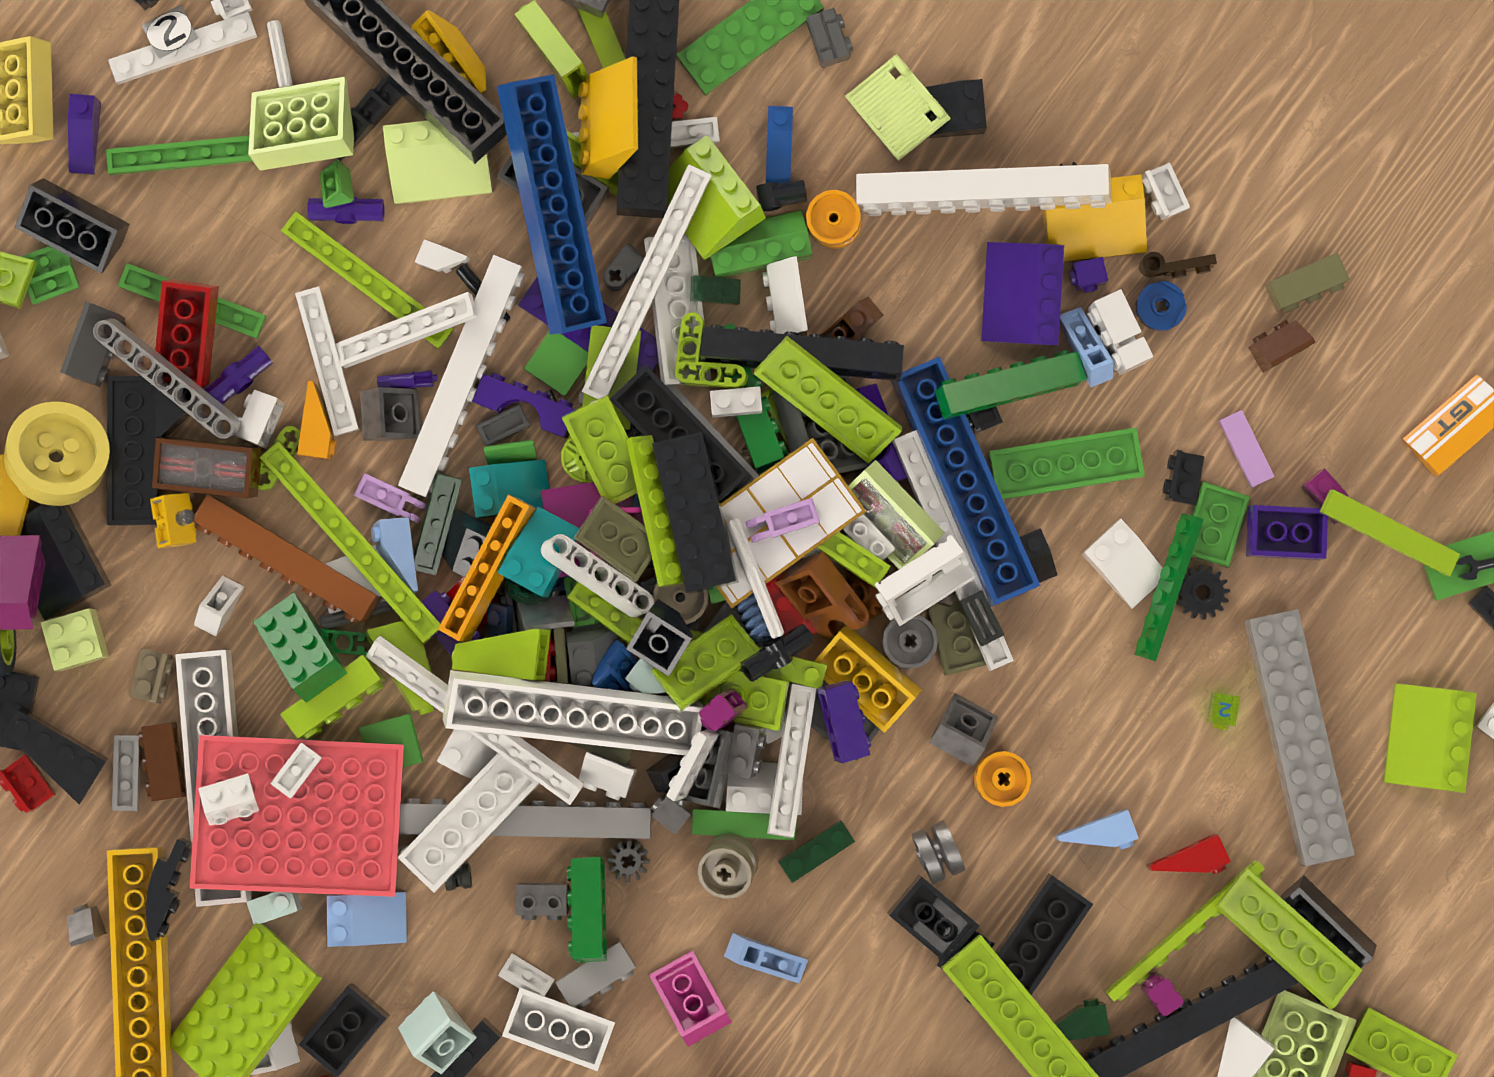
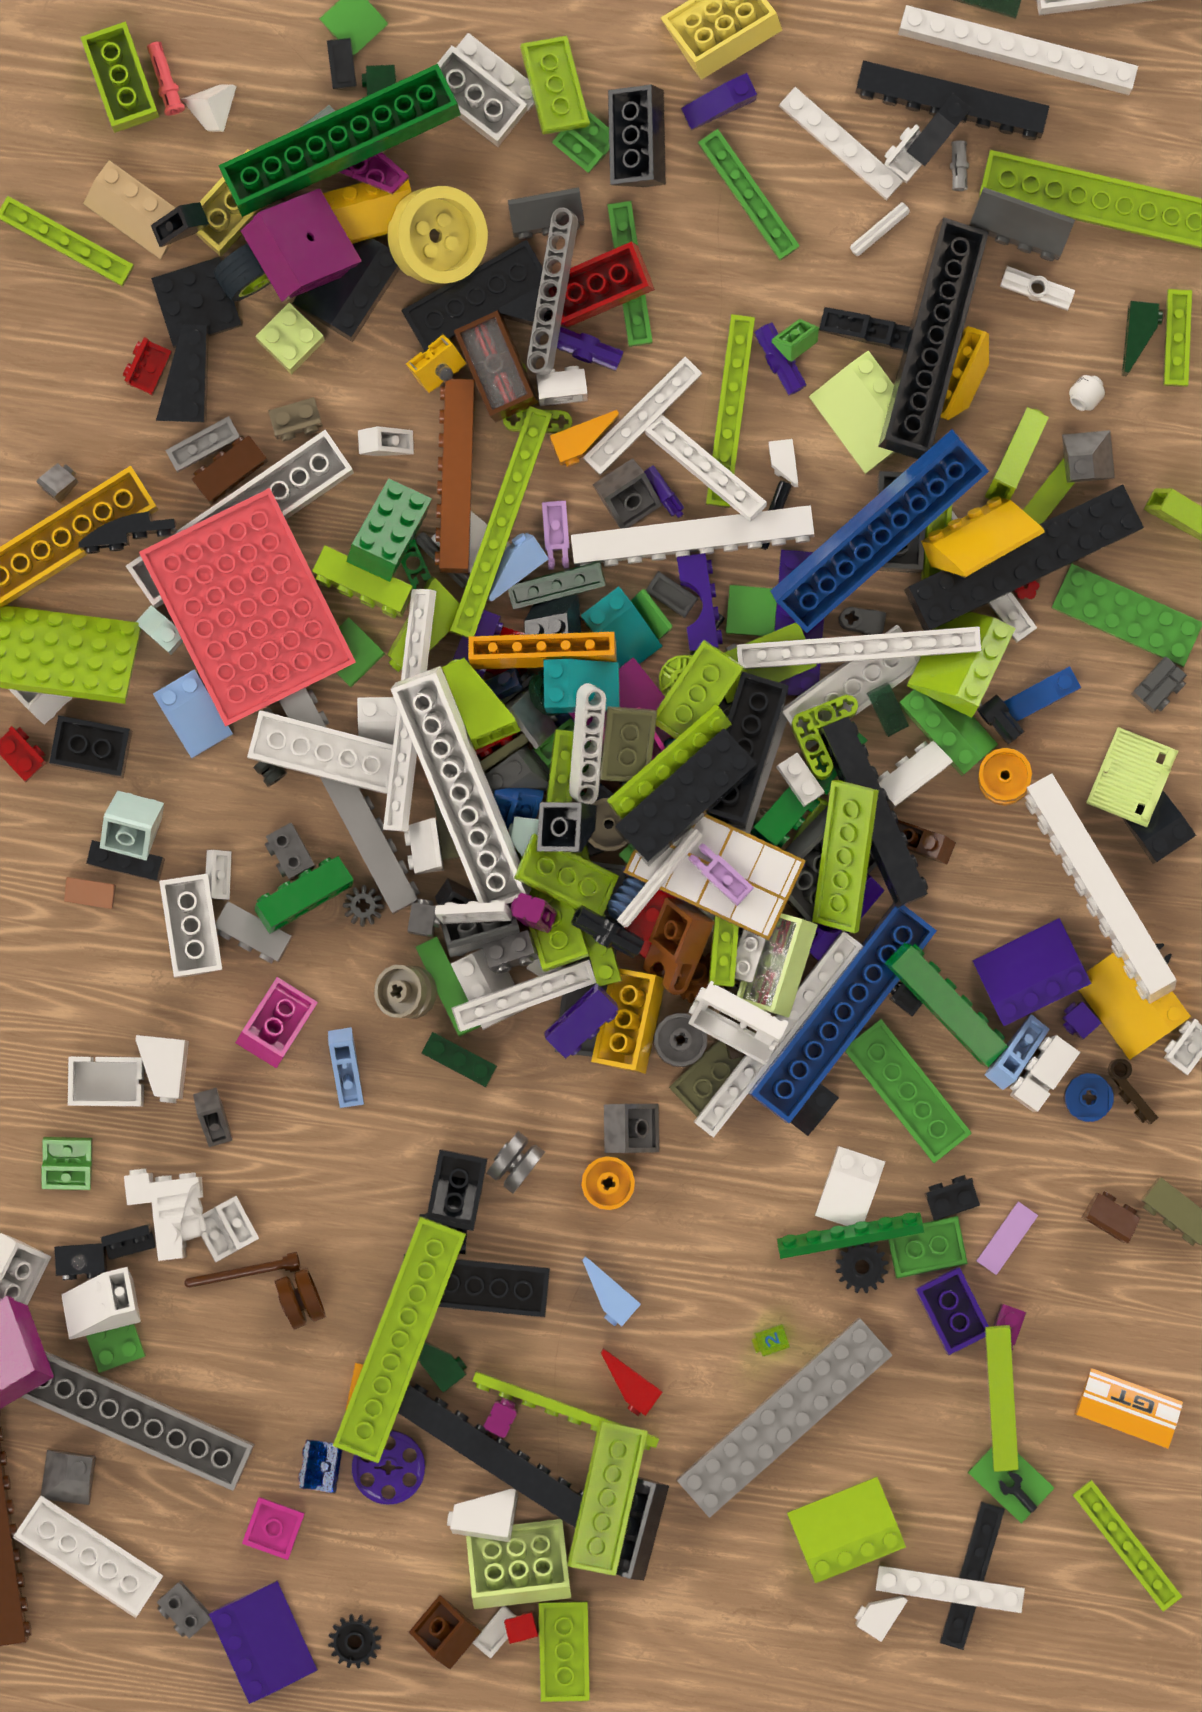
camera: 60 degrees right, 0 degrees up
(169, 31) = (848, 124): sticker -> none
(228, 800) = (229, 543): white bracket -> none
(296, 770) = (285, 585): white plate -> none
(301, 124) = (831, 280): yellowish green slope -> none
(971, 620) = (725, 1084): pearl dark grey tile -> none

